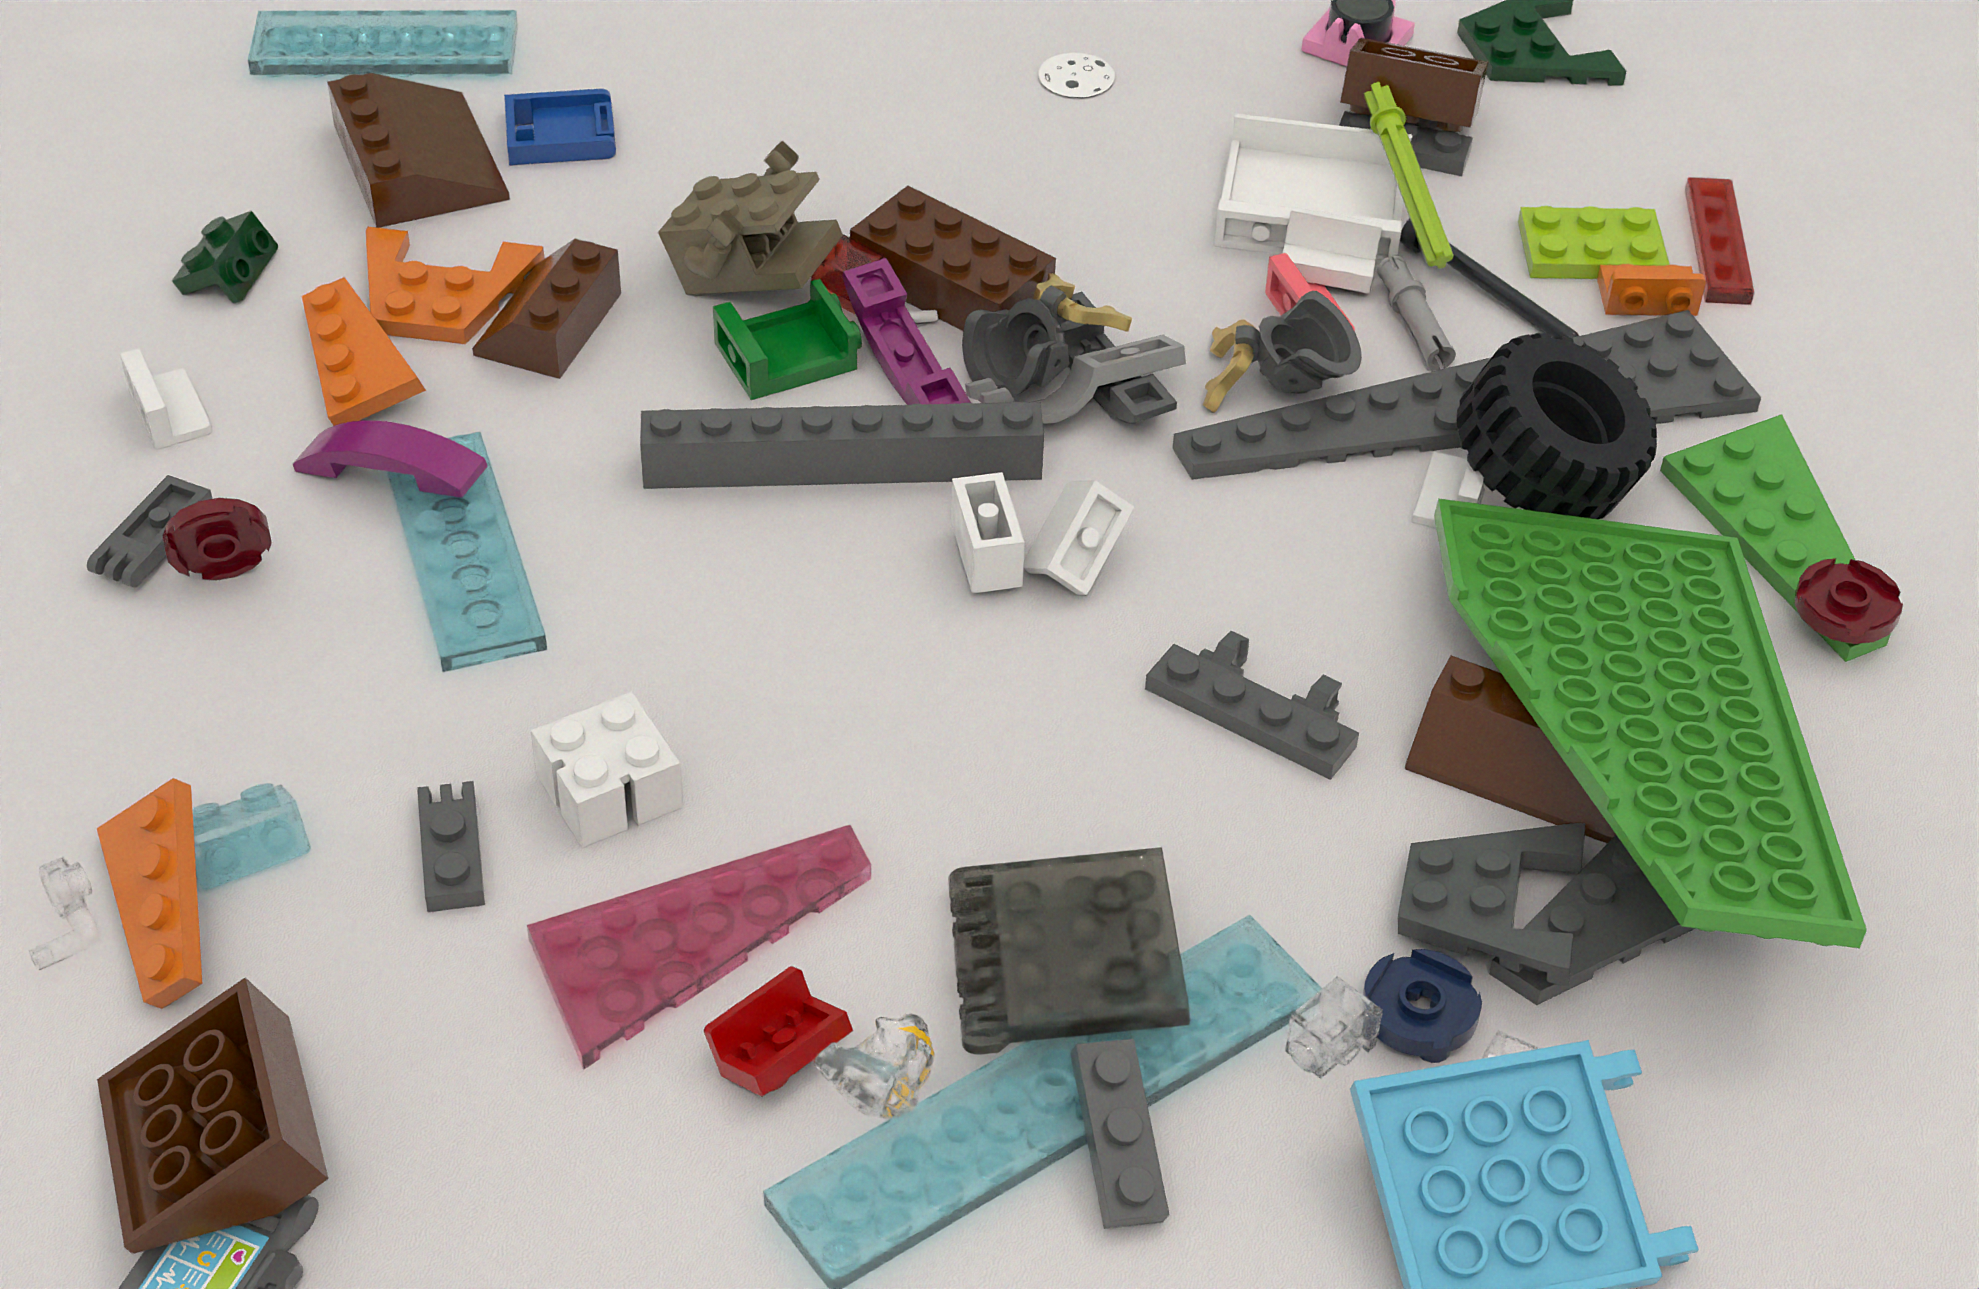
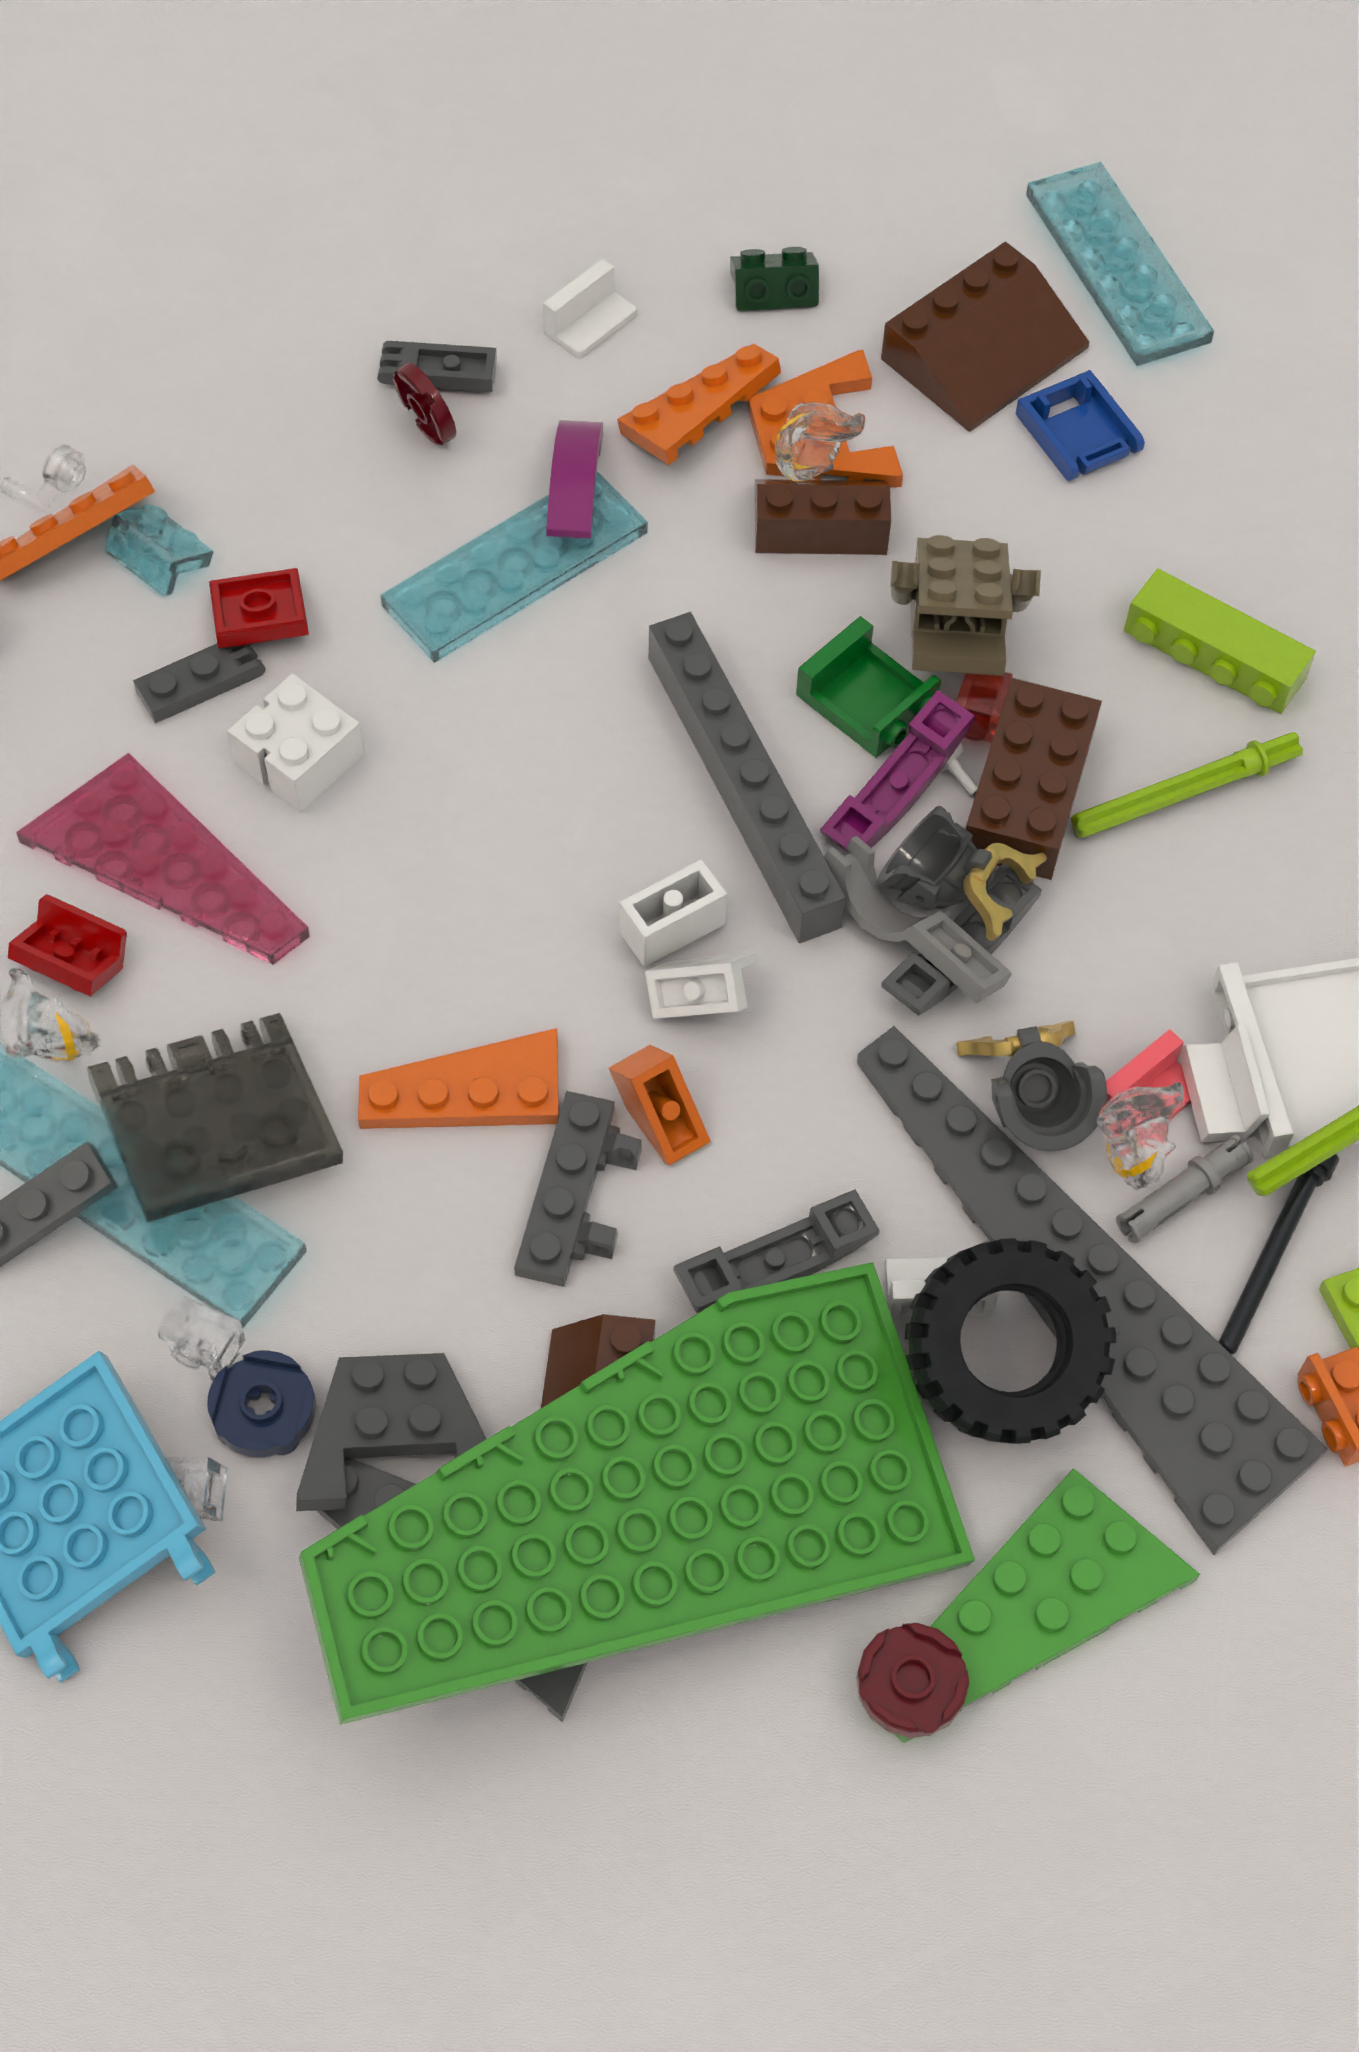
camera: 70 degrees right, 15 degrees up
(392, 762) = (258, 608): none -> red tile
(471, 273) = (813, 439): none -> clear hair
(865, 115) = (1219, 641): none -> lime brick
(999, 141) = (1252, 760): none -> lime axle
(1105, 752) = (472, 1087): none -> orange wing
(1187, 606) = (660, 1102): none -> orange slope
(1373, 301) = (1138, 1131): none -> clear hair
(1385, 572) = (786, 1254): none -> dark grey slope

